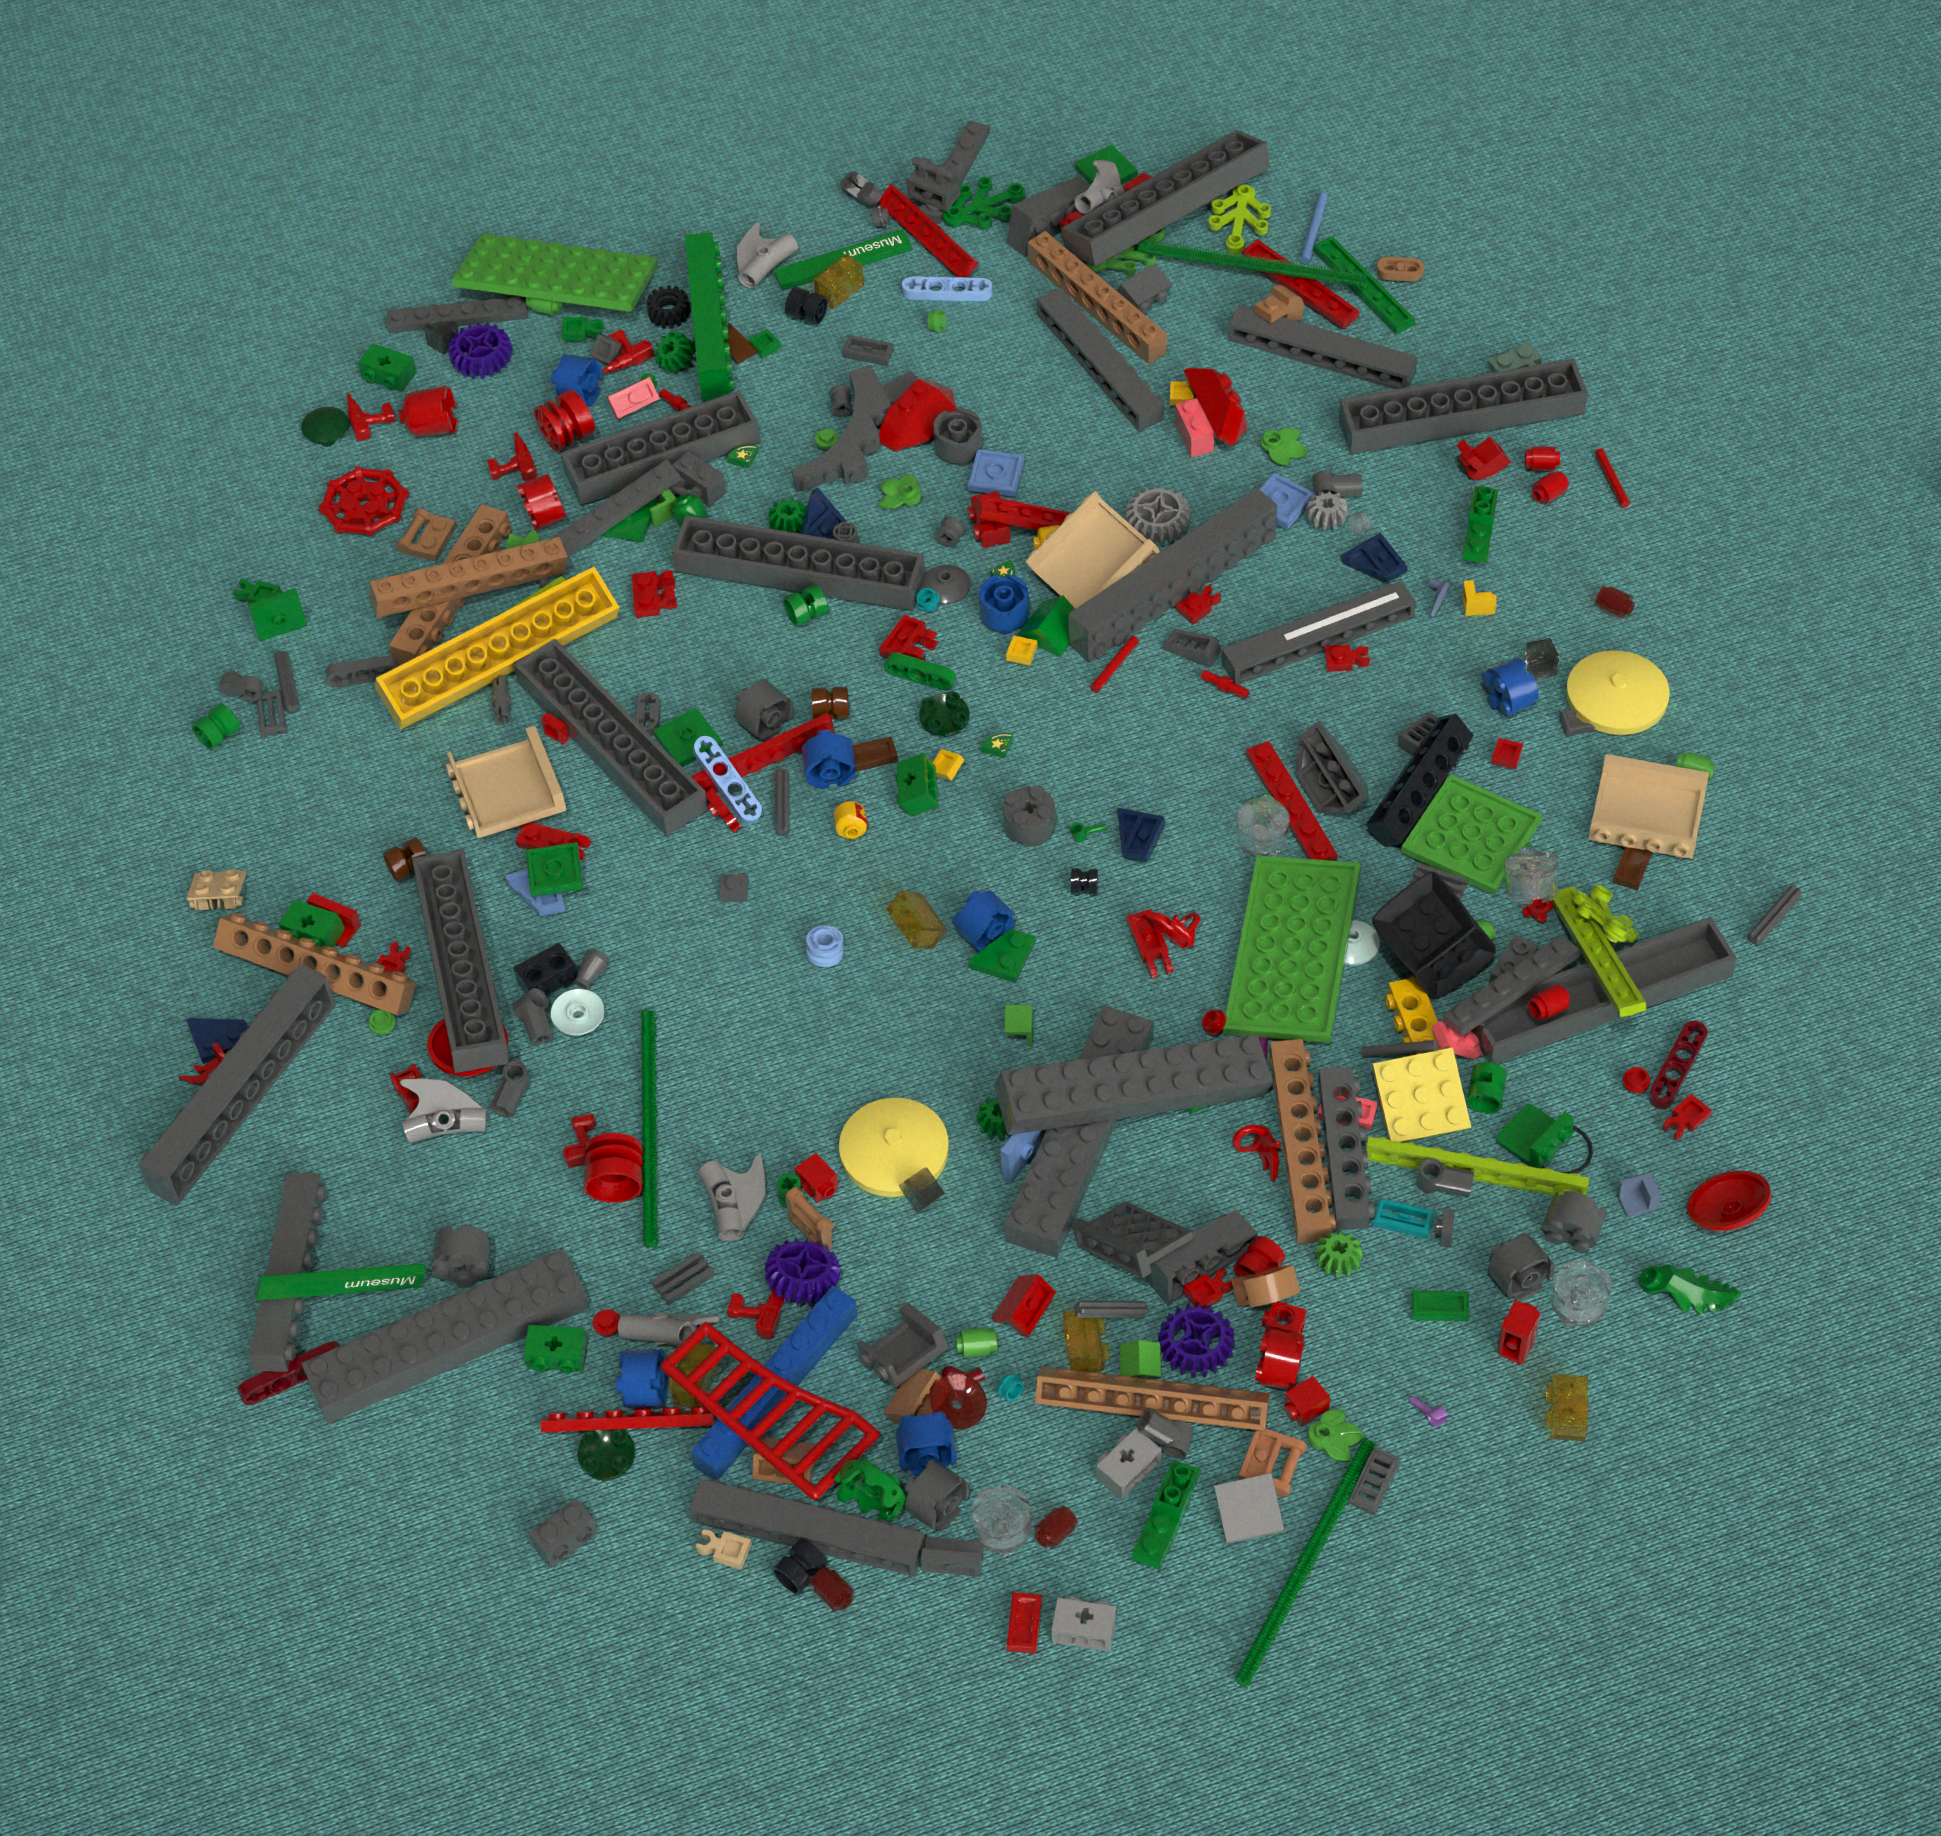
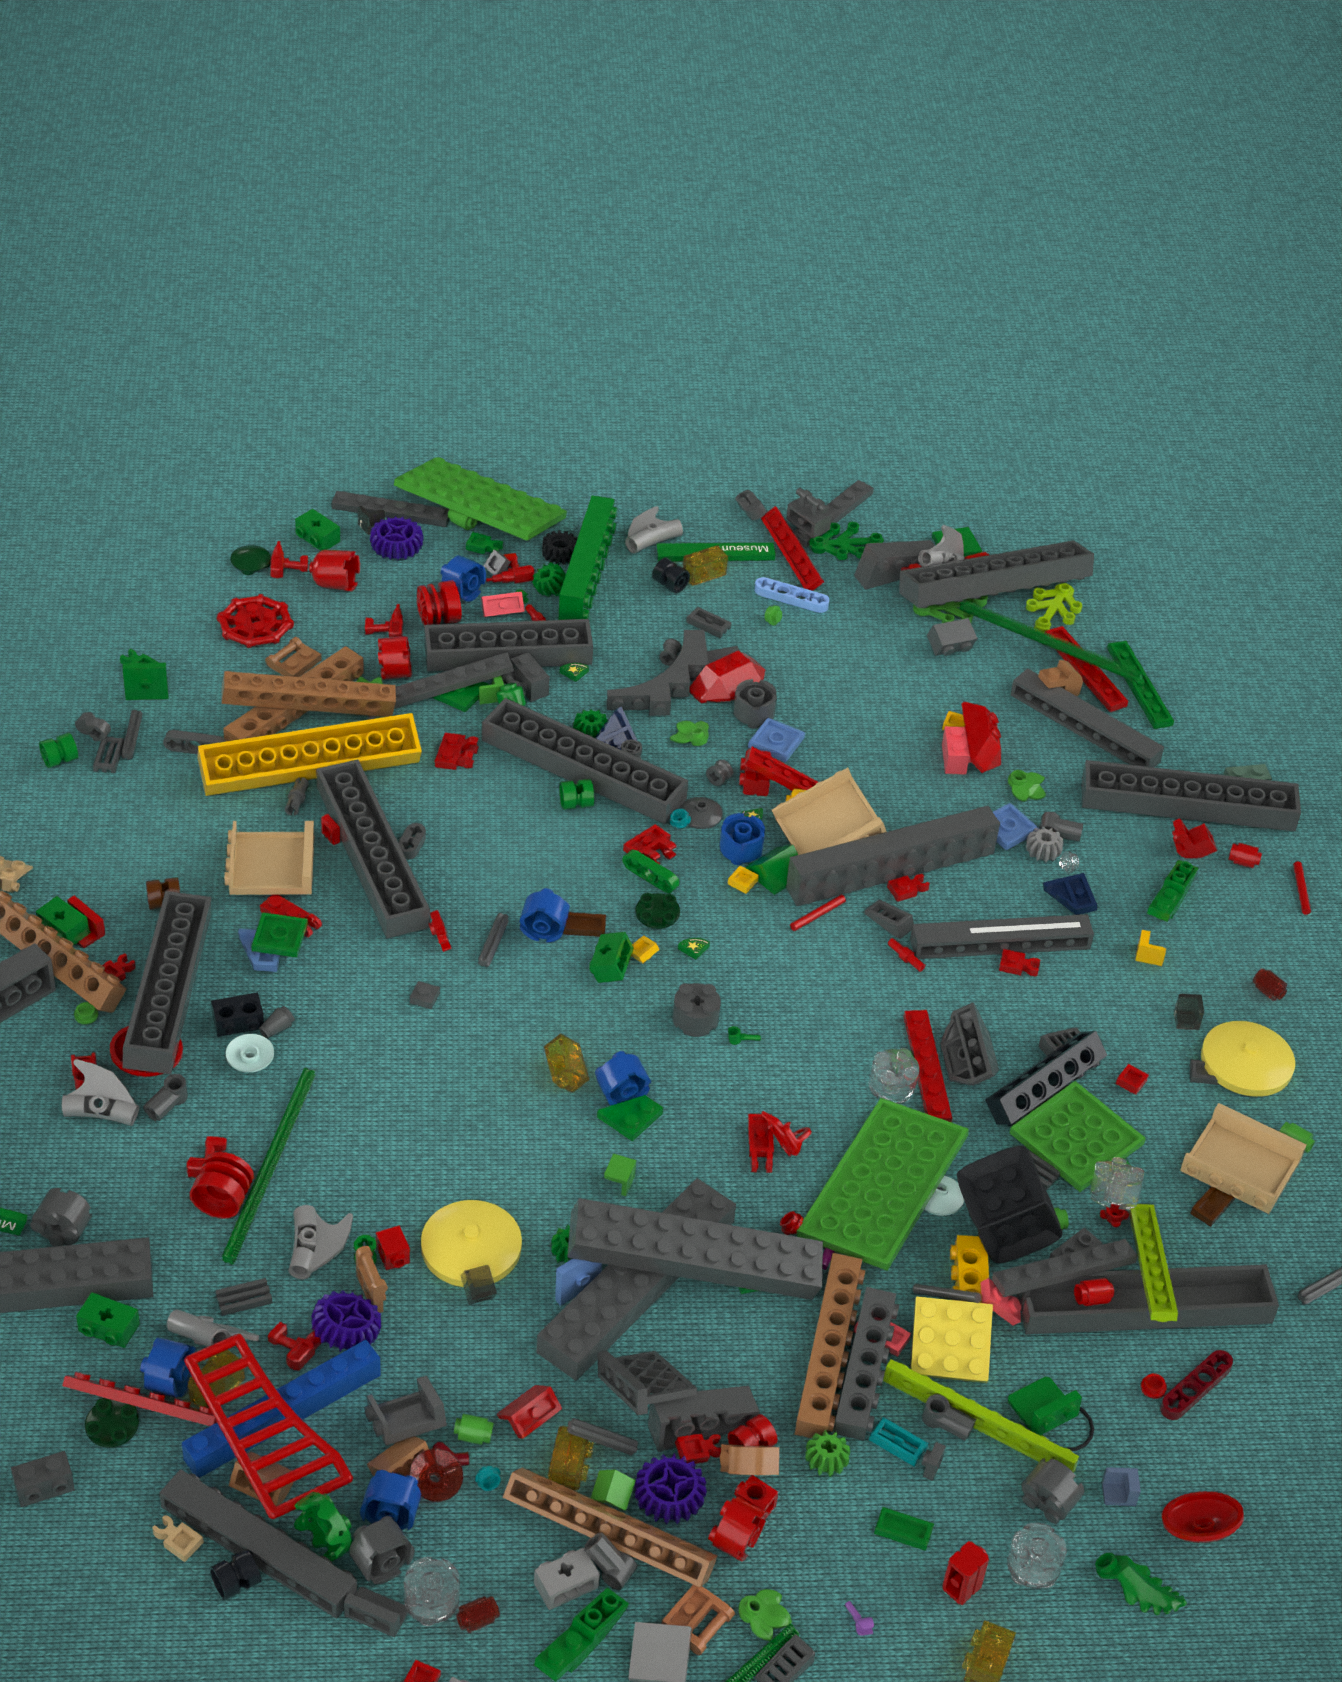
camera: 10 degrees right, 10 degrees down
(531, 1011) = (211, 1043): dark grey piece -> none
(606, 1323) = (160, 1312): red plate -> none
(681, 733) = (436, 868): green plate -> none
(729, 778) = (451, 907): light blue beam -> none
(739, 347) = (605, 591): reddish brown tile -> none
(763, 709) = (506, 861): dark grey brick -> none
(765, 343) = (626, 594): green tile -> none
(768, 752) = (487, 898): red plate -> none
(824, 946) = (480, 1062): light blue wheel -> none
(826, 439) = (646, 675): bright green plate -> none
(831, 702) = (565, 874): reddish brown wheel -> none
(832, 1589) = (256, 1604): clear red brick -> none
(850, 820) = (544, 969): yellow head -> none
(880, 216) = (758, 528): dark grey plate -> none
(1084, 881) = (723, 1075): black wheel -> none
(1097, 297) = (912, 633): medium nougat brick -> none
(1100, 359) = (897, 679): dark grey brick -> none
(1139, 833) = (785, 1051): dark blue wing -> none
(1158, 514) = (899, 806): light grey gear -> none
(1263, 1144) = (795, 1339): red piece -> none
(1306, 1401) = (749, 1574): red brick -> none
(1314, 227) = (1114, 630): medium blue bar -> none
(1400, 269) = (1174, 680): medium nougat plate -> none
(1442, 591) = (1122, 934): sand blue bar -> none
(1486, 1087) = (1014, 1350): green wheel -> none
(1510, 687) = (1152, 1025): blue brick -> none
(1520, 1267) = (988, 1515): dark grey brick -> none
(1550, 487) = (1244, 879): red brick -> none
(1616, 927) = (1168, 1229): lime plant -> none
(1687, 1114) = (1190, 1430): red plate -> none

